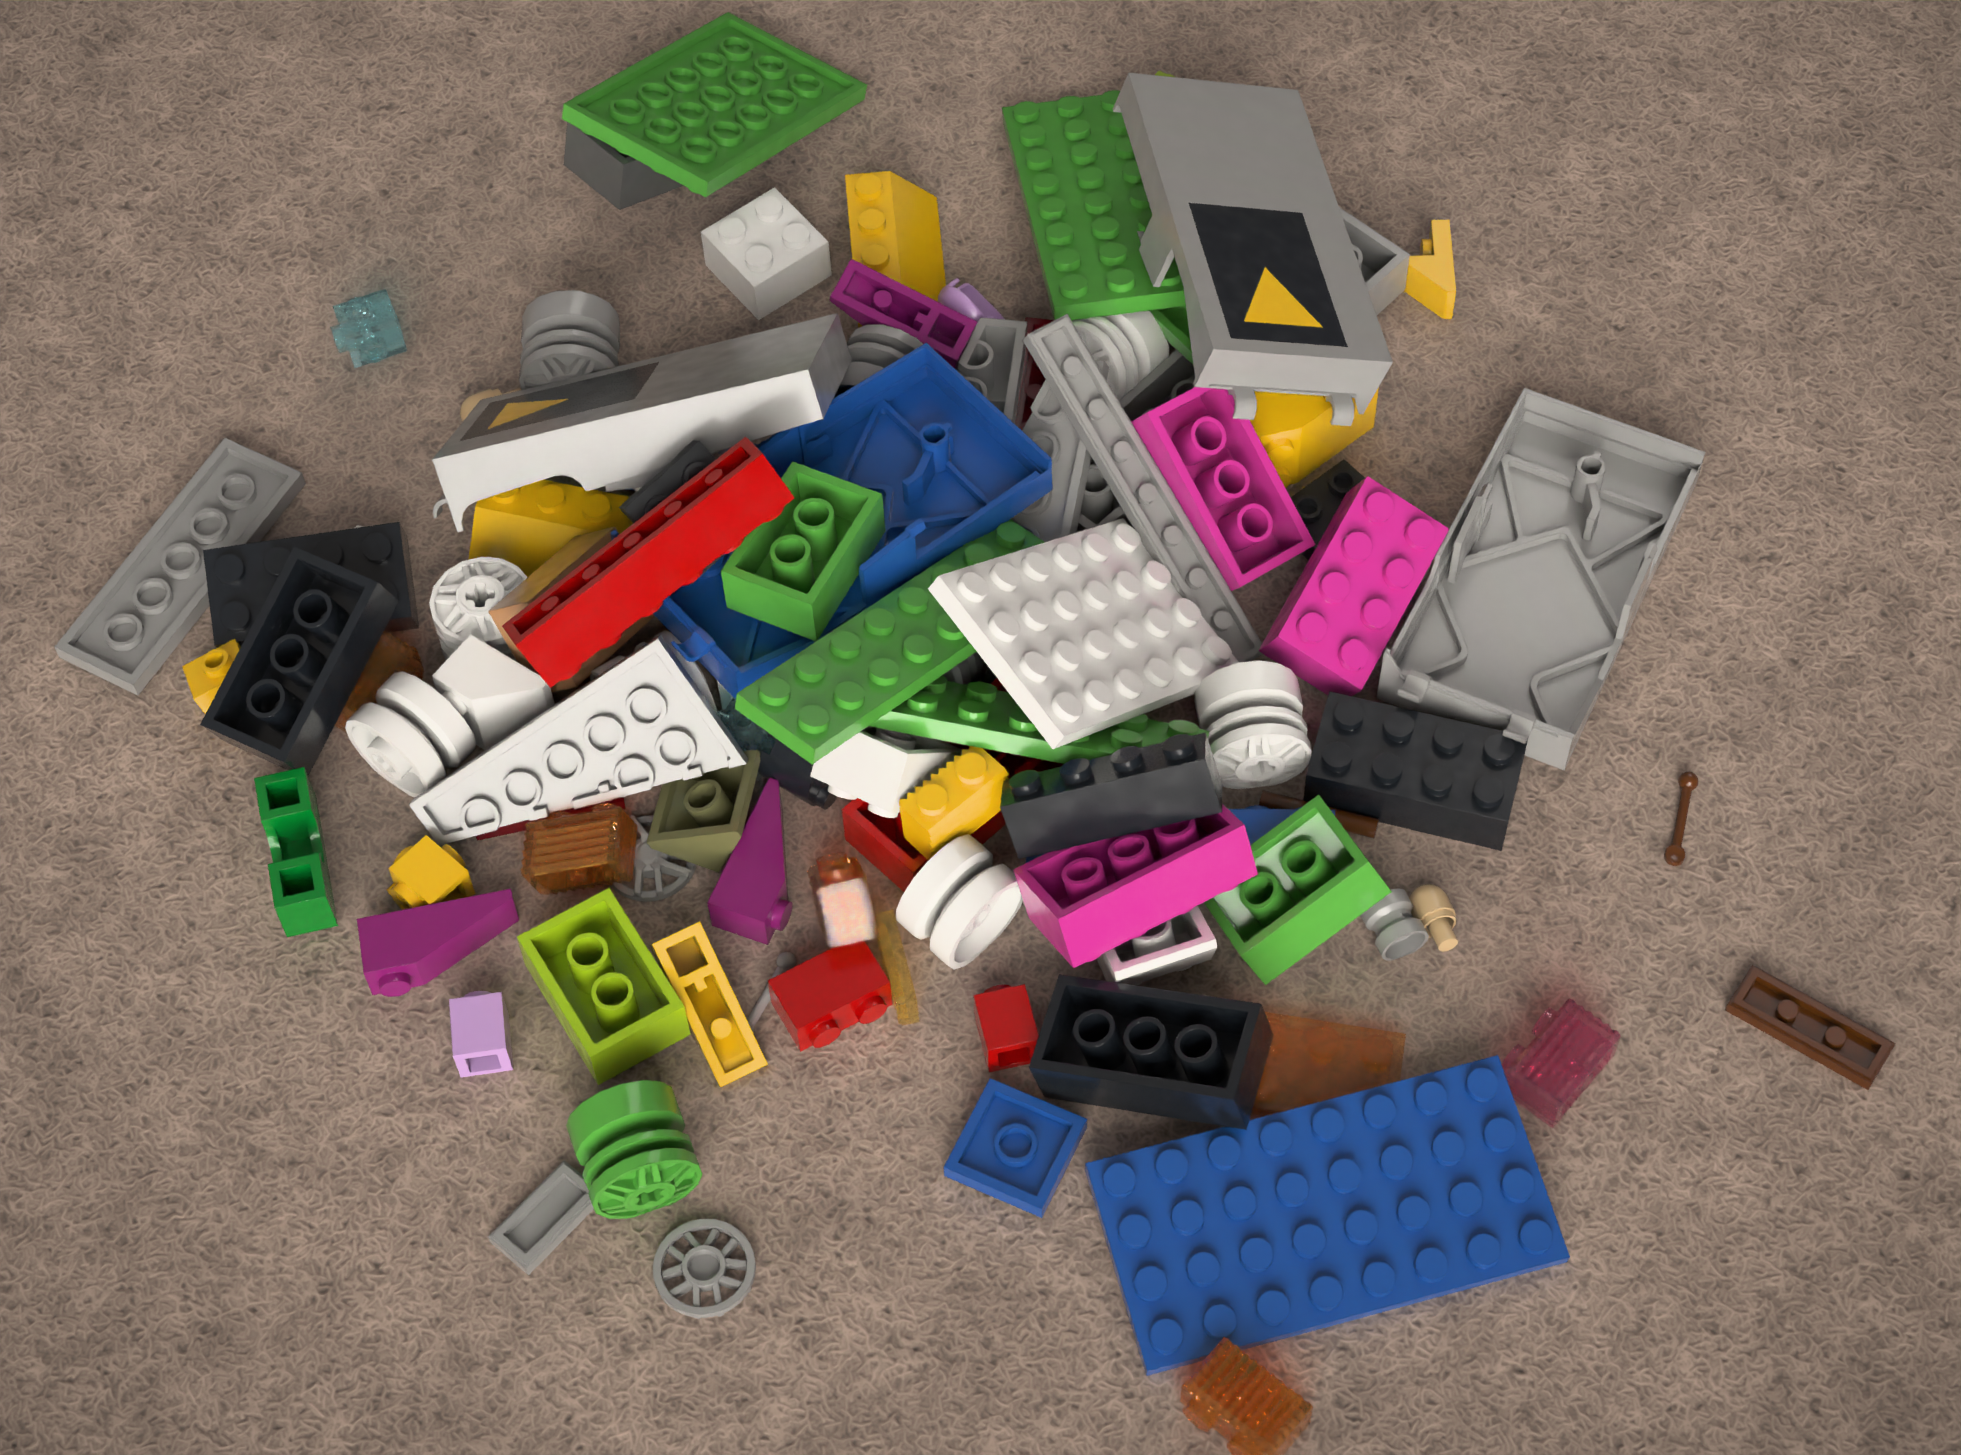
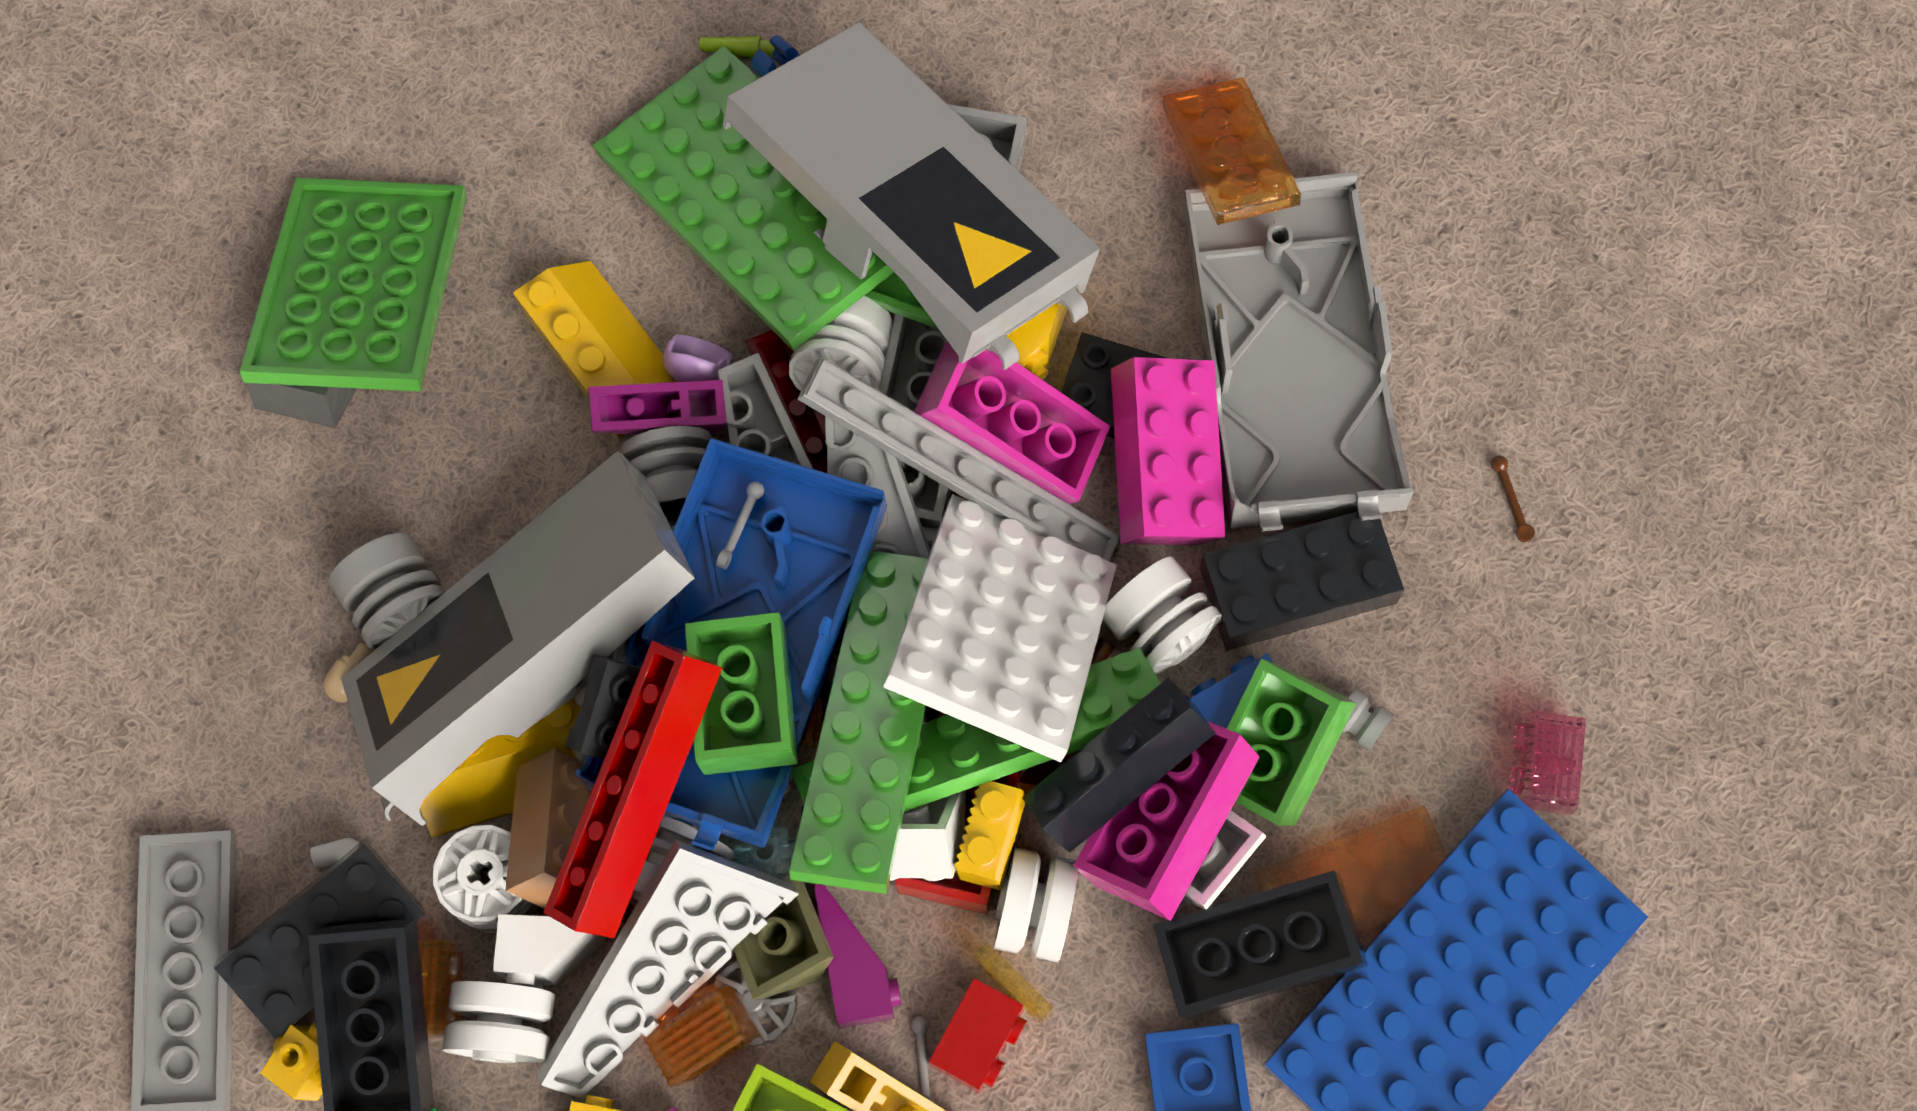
camera: 30 degrees left, 15 degrees up
(368, 329) = (193, 663): clear light blue brick -> none
(766, 253) = (488, 398): white brick -> none
(842, 900) = (944, 960): clear orange brick -> none
(872, 447) = (754, 491): none -> light grey hinge
(1005, 1026) = (1128, 981): red brick -> none
(1351, 821) = (1227, 658): reddish brown piece -> none
(1432, 272) = (1046, 117): yellow slope -> none
(1436, 912) = (1384, 691): tan cylinder -> none
(1592, 378) = (1231, 151): none -> clear orange plate
(1810, 1027) = (1703, 621): reddish brown tile -> none

